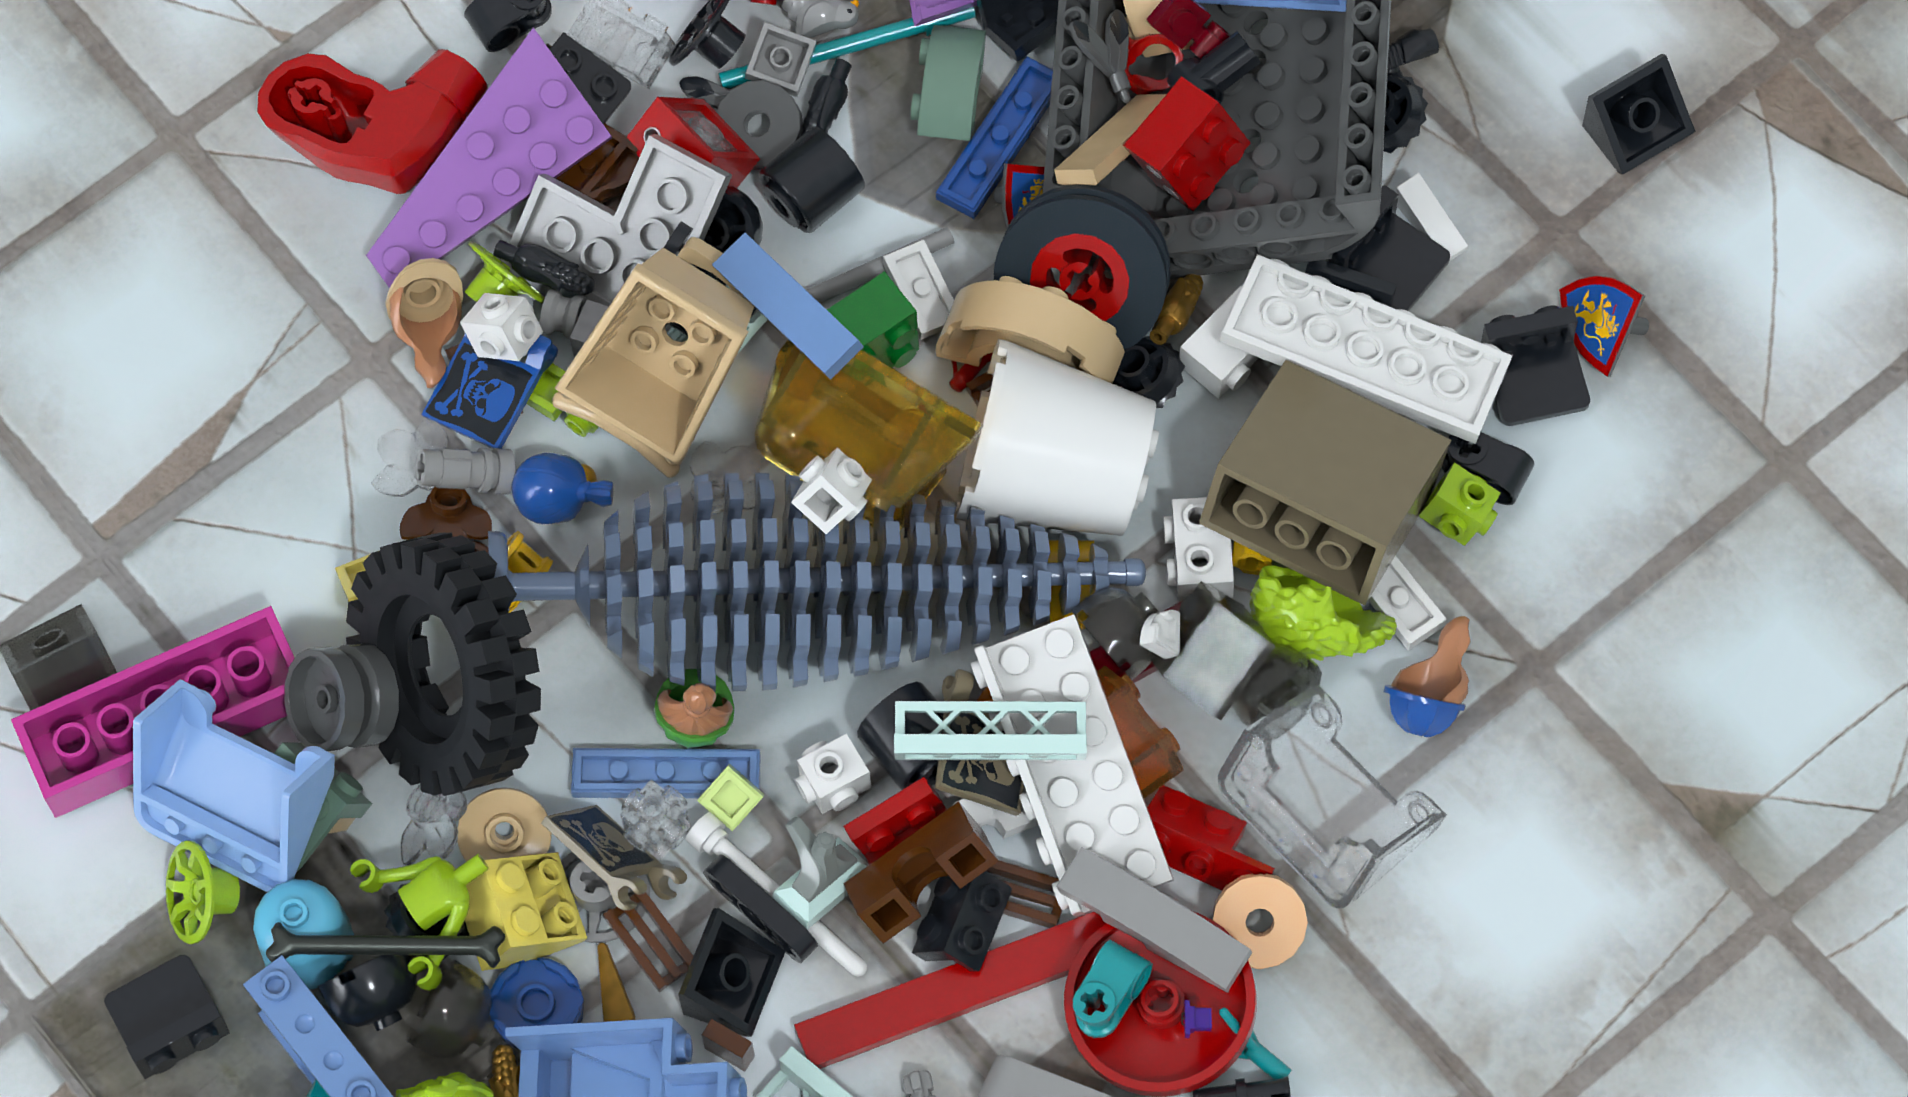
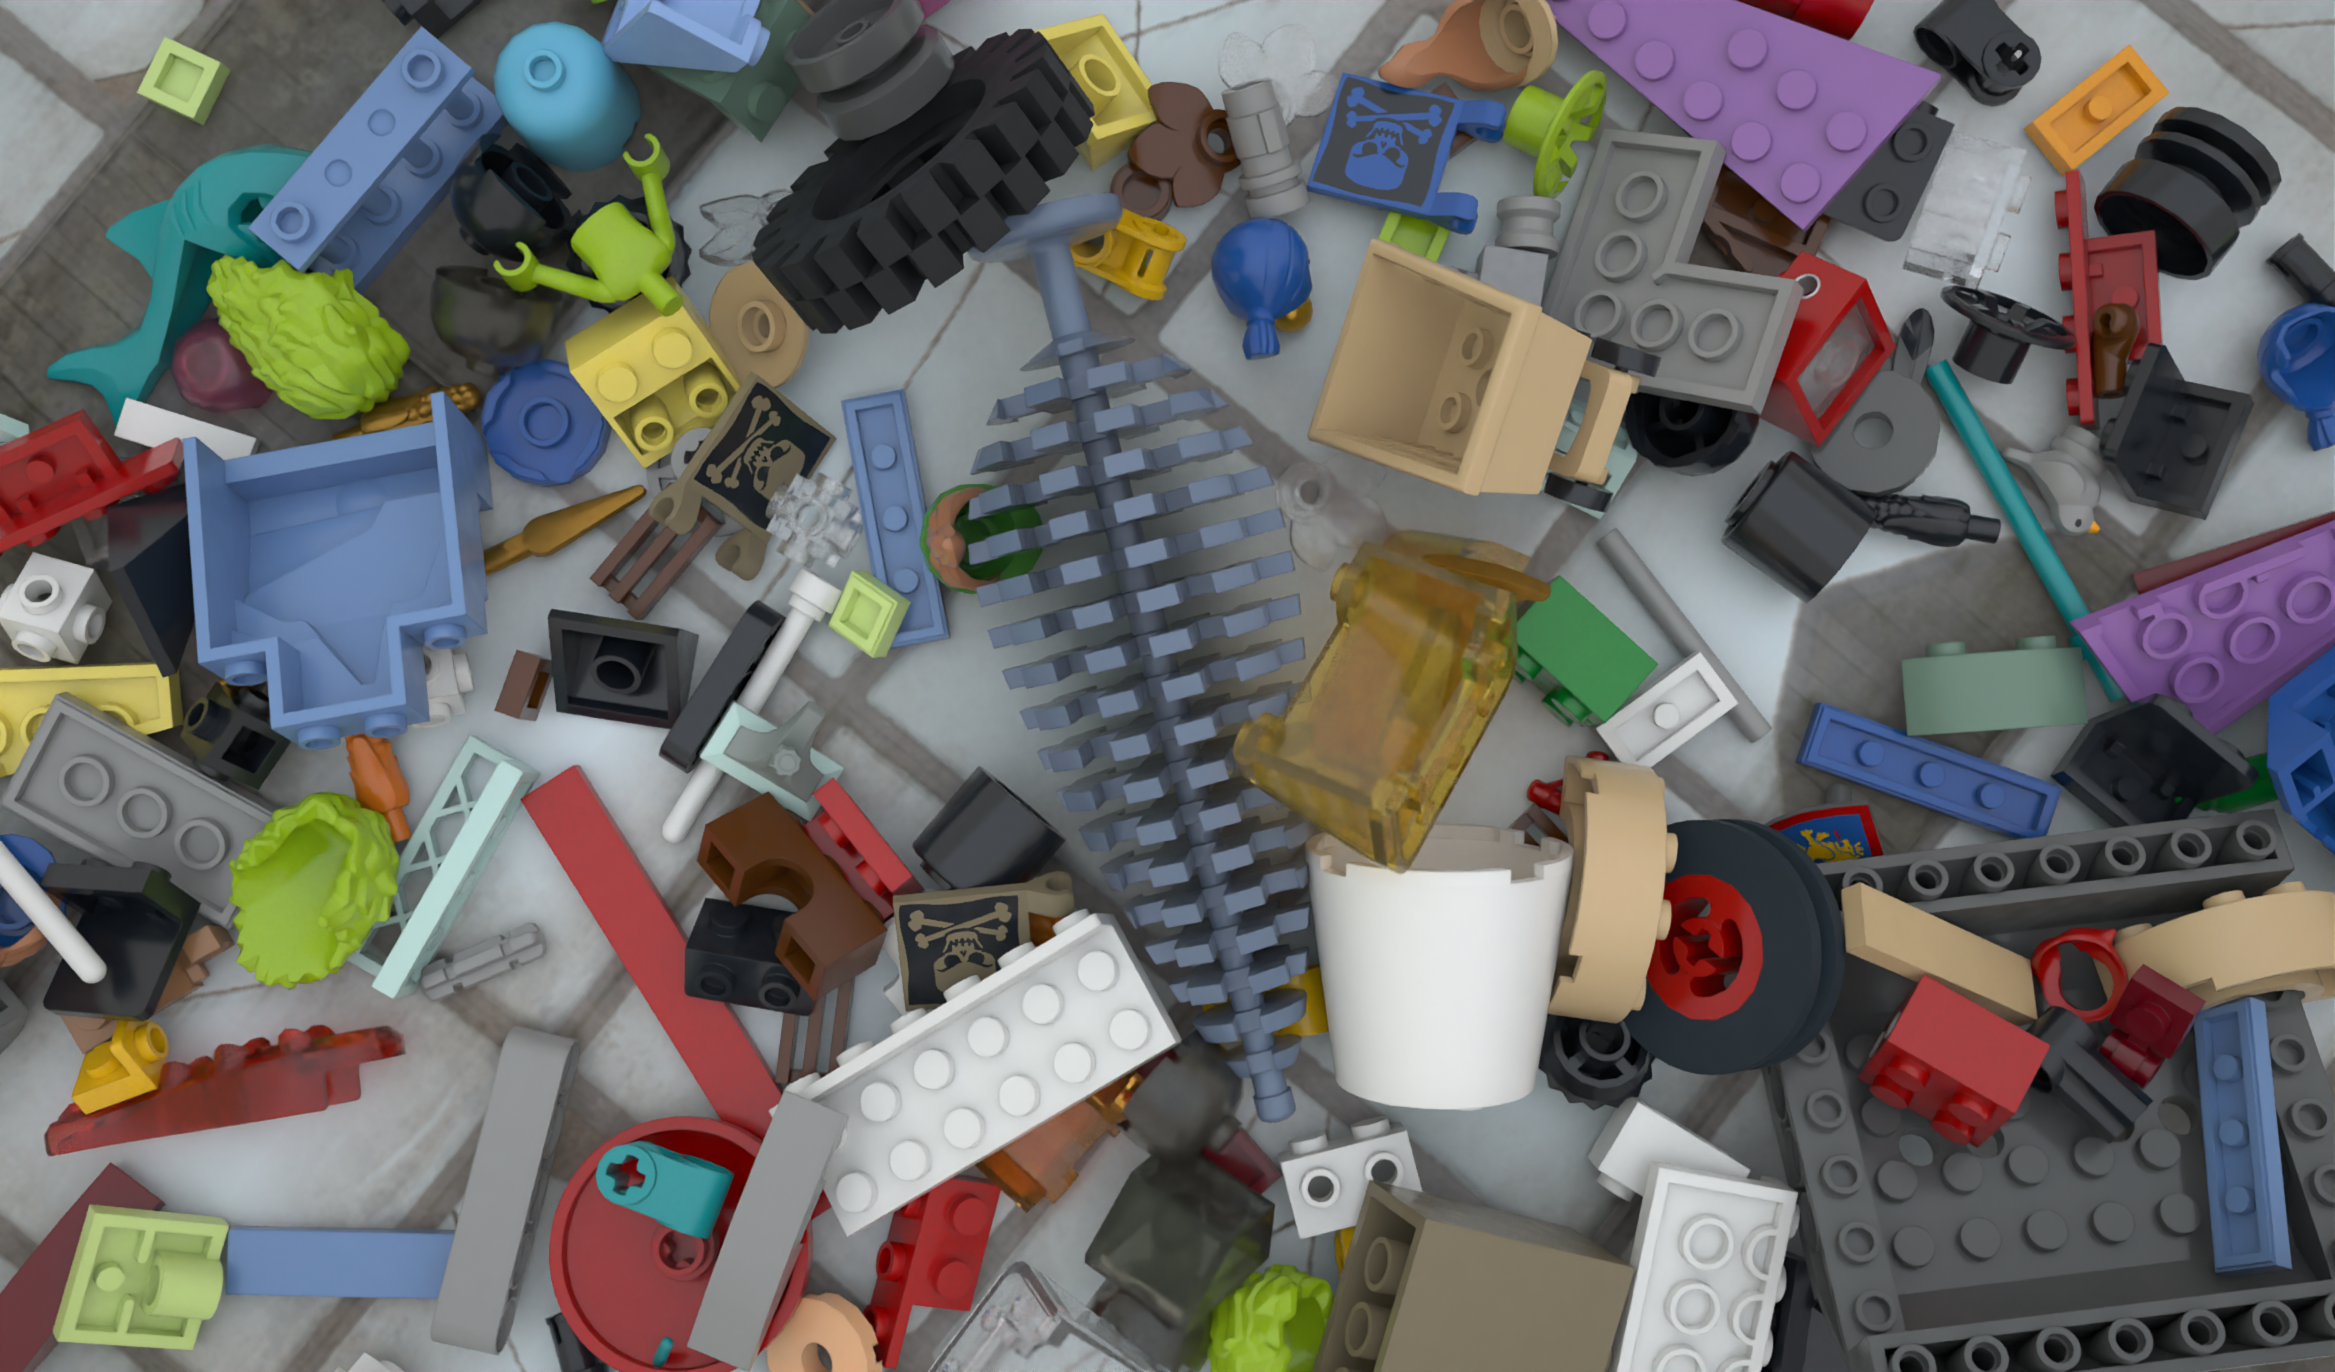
camera: 75 degrees right, 20 degrees up
(482, 945) = (498, 74): pearl dark grey piece -> none
(501, 327) = (1474, 145): white brick -> none
(544, 267) = (1587, 186): black piece -> none
(781, 58) = (1981, 441): light grey piece -> none
(788, 306) = (1533, 545): medium blue tile -> none
(831, 490) = (1231, 676): white brick -> none
(832, 774) = (939, 757): white brick -> none
(985, 745) = (949, 968): light aqua fence -> none
(1108, 56) = (2073, 912): dark grey piece -> none
(1162, 633) = (1179, 1168): white tile -> none
(1177, 308) = (1726, 1088): pearl gold piece -> none
(1196, 1019) = (648, 1308): dark purple piece -> none

